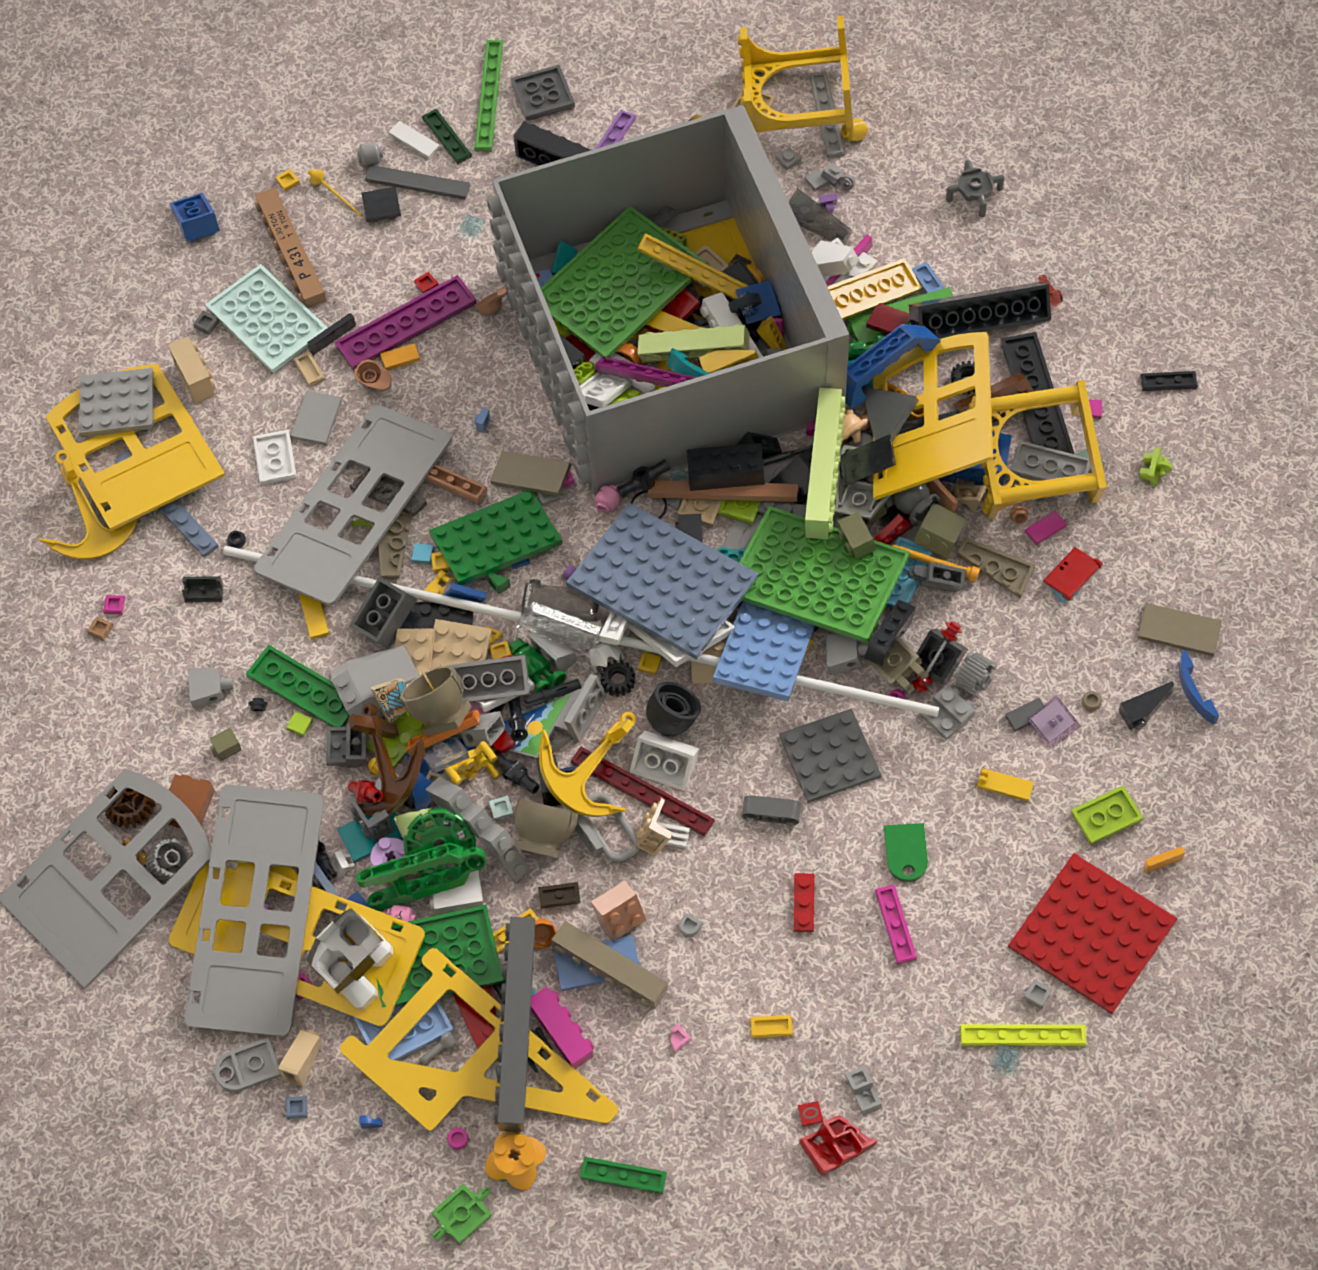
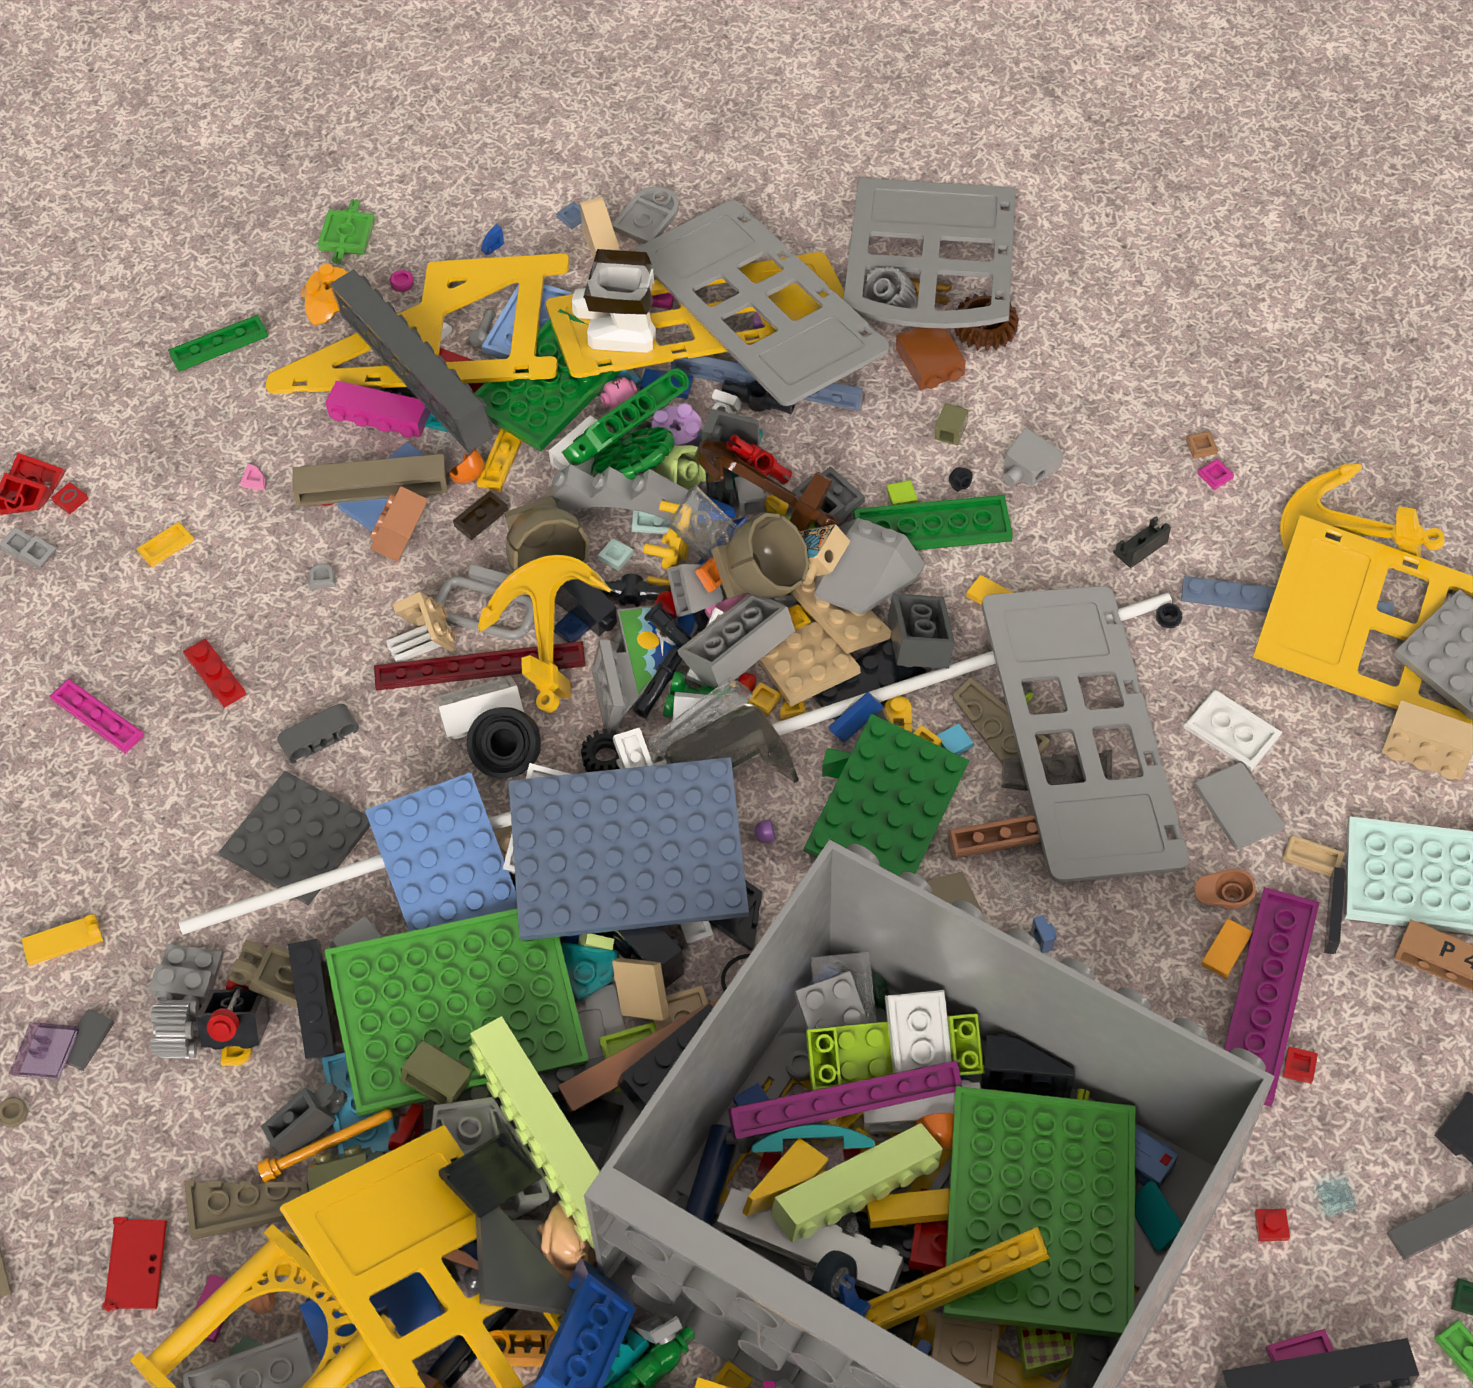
camera: 140 degrees right, 5 degrees down
(713, 520) = (641, 989): none -> tan tile
(906, 848) = (137, 797): green tile -> none

